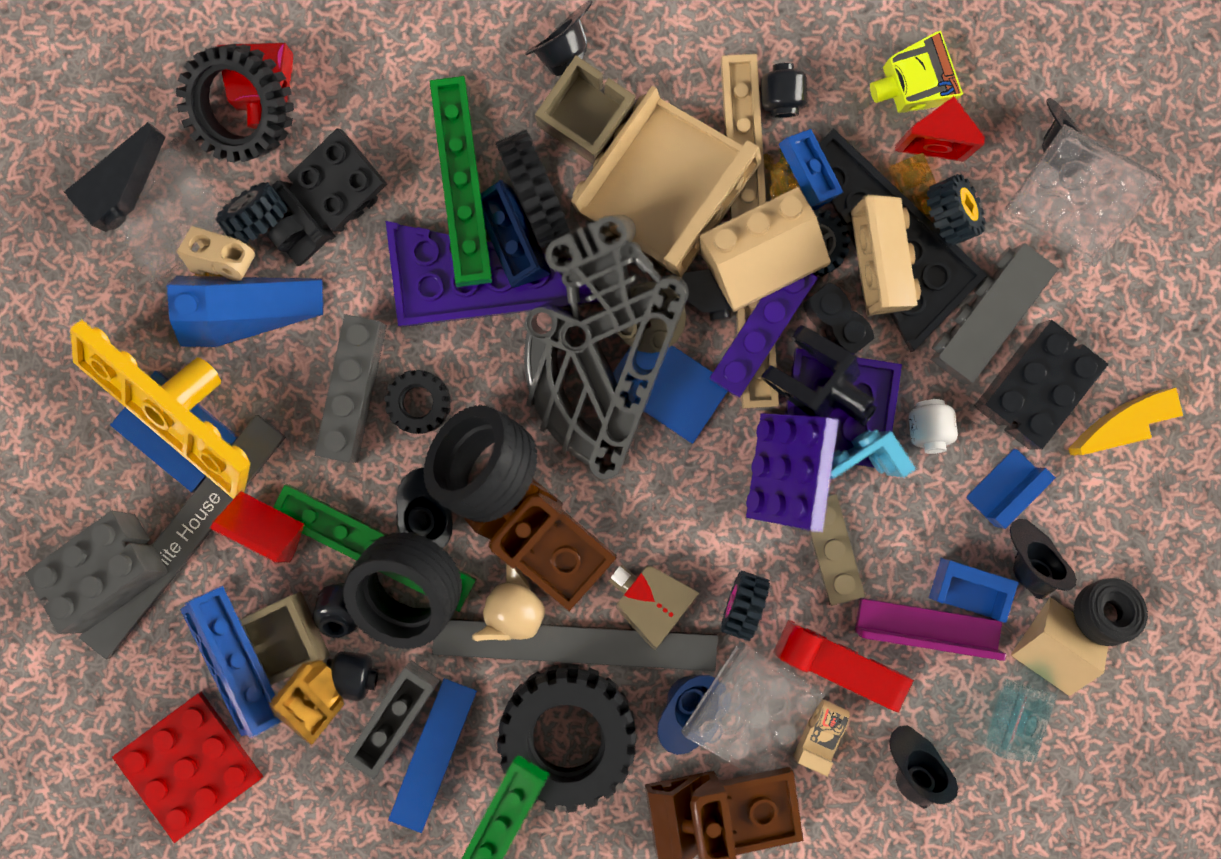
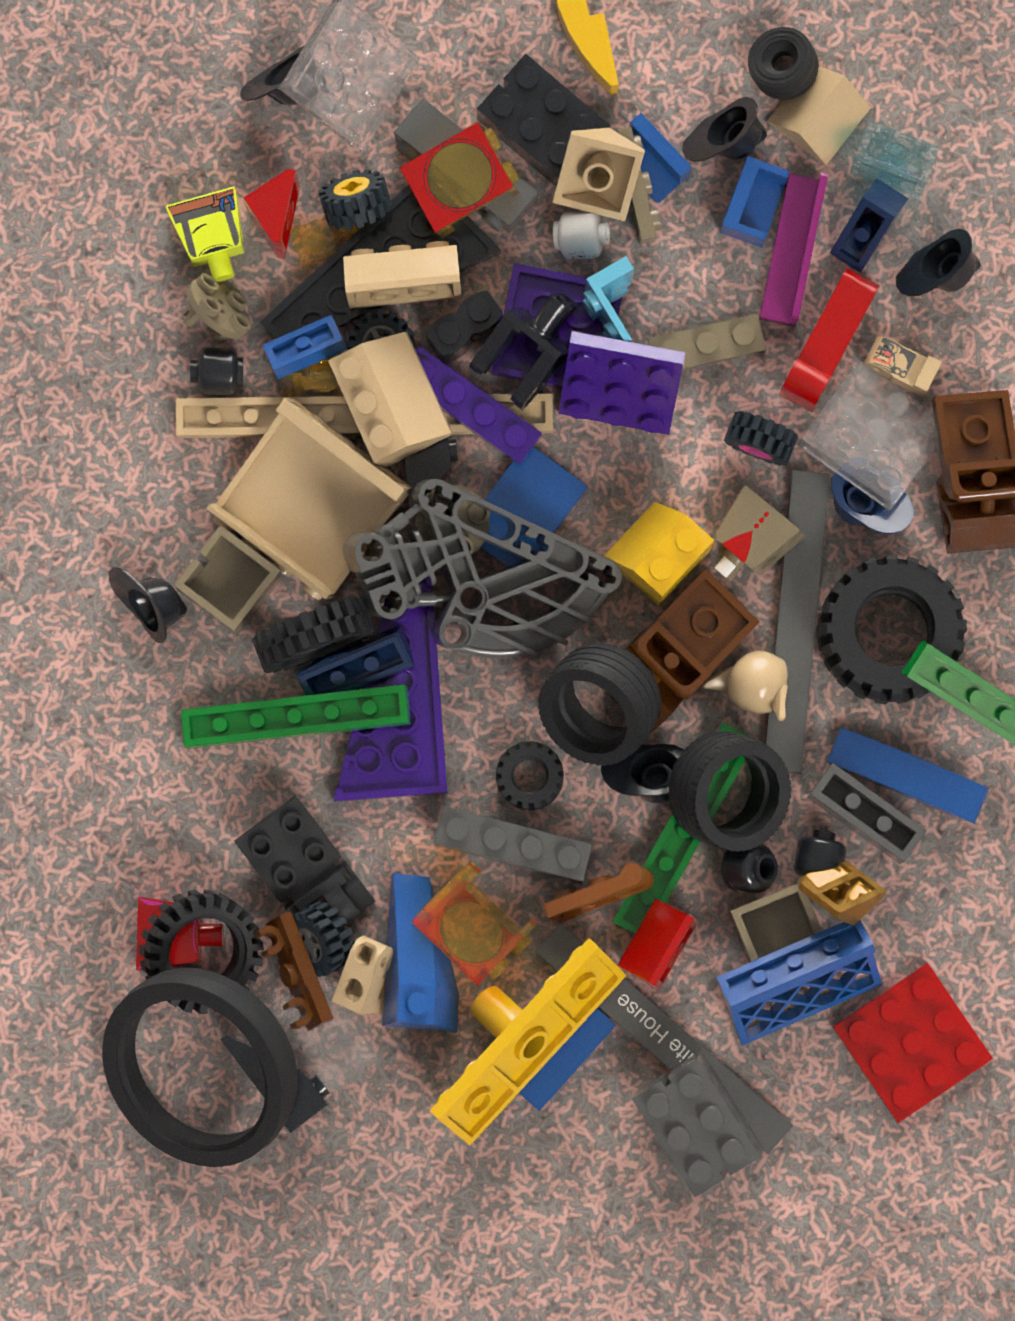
camera: 85 degrees left, 5 degrees down
(153, 128) = (255, 1023): none -> black tyre
(217, 191) = (296, 972): none -> reddish brown plate
(270, 355) = (471, 927): none -> clear yellow panel
(308, 472) = (600, 893): none -> dark orange plate
(632, 514) = (660, 551): none -> yellow slope
(844, 86) = (217, 308): none -> dark tan plate
(956, 699) = (868, 225): none -> dark blue slope
(984, 306) = (460, 177): none -> panel
(984, 477) = (645, 219): none -> dark tan plate
(995, 440) = (599, 173): none -> tan slope

